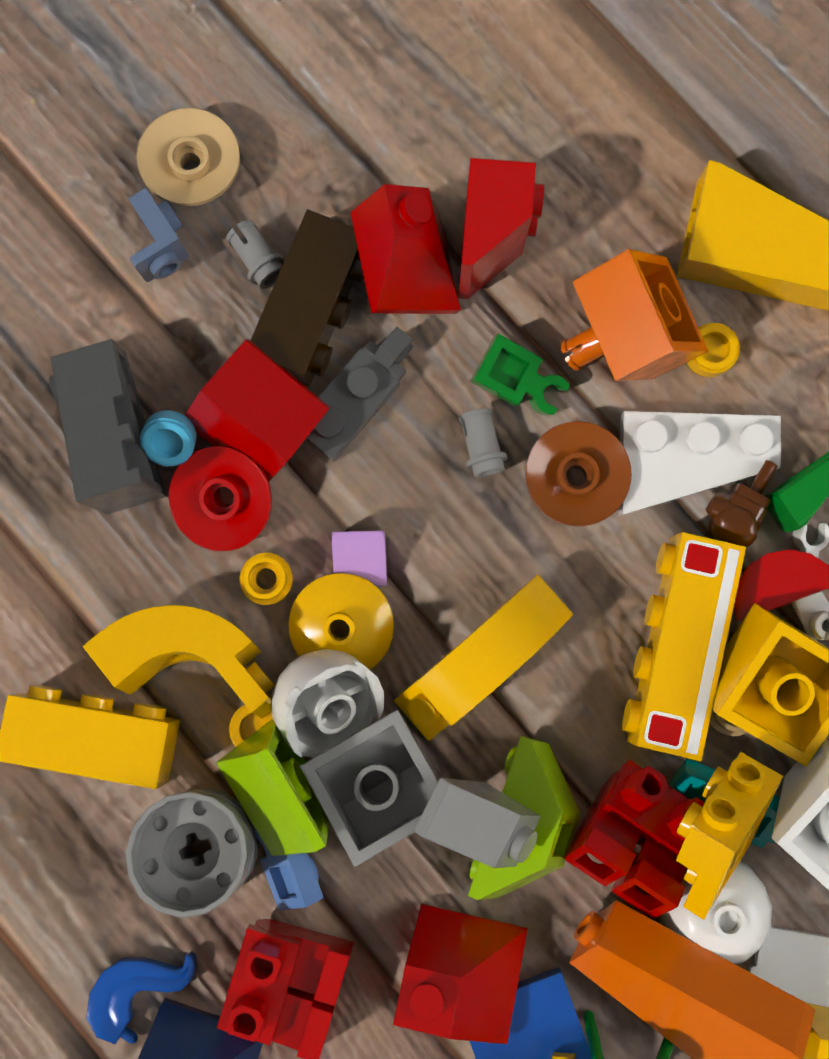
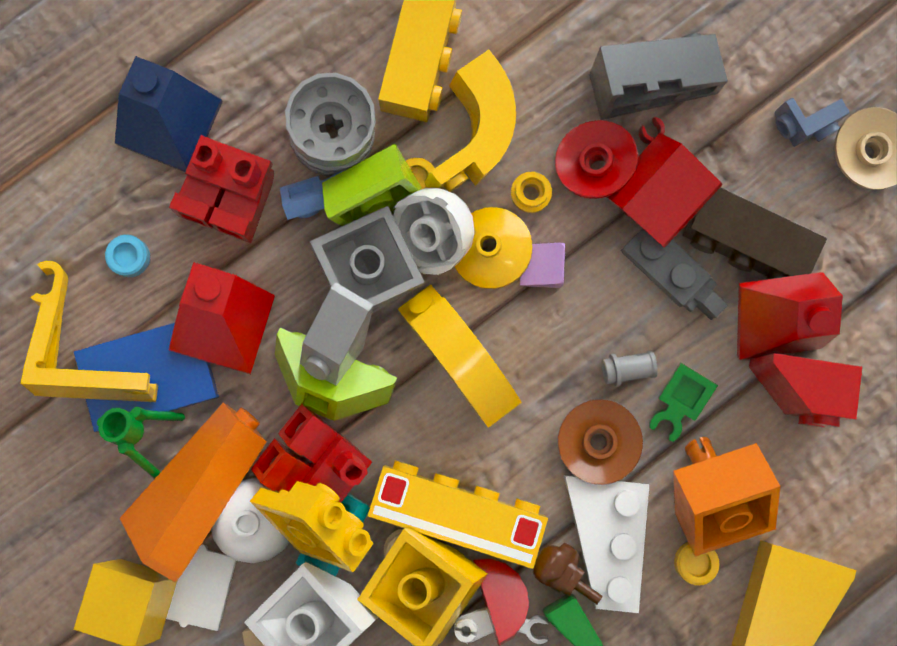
camera: 90 degrees right, 0 degrees up
(113, 993) = (231, 64): blue piece -> none
(168, 438) = (646, 121): medium azure tile -> none
(256, 255) = (793, 197): light grey pin -> none

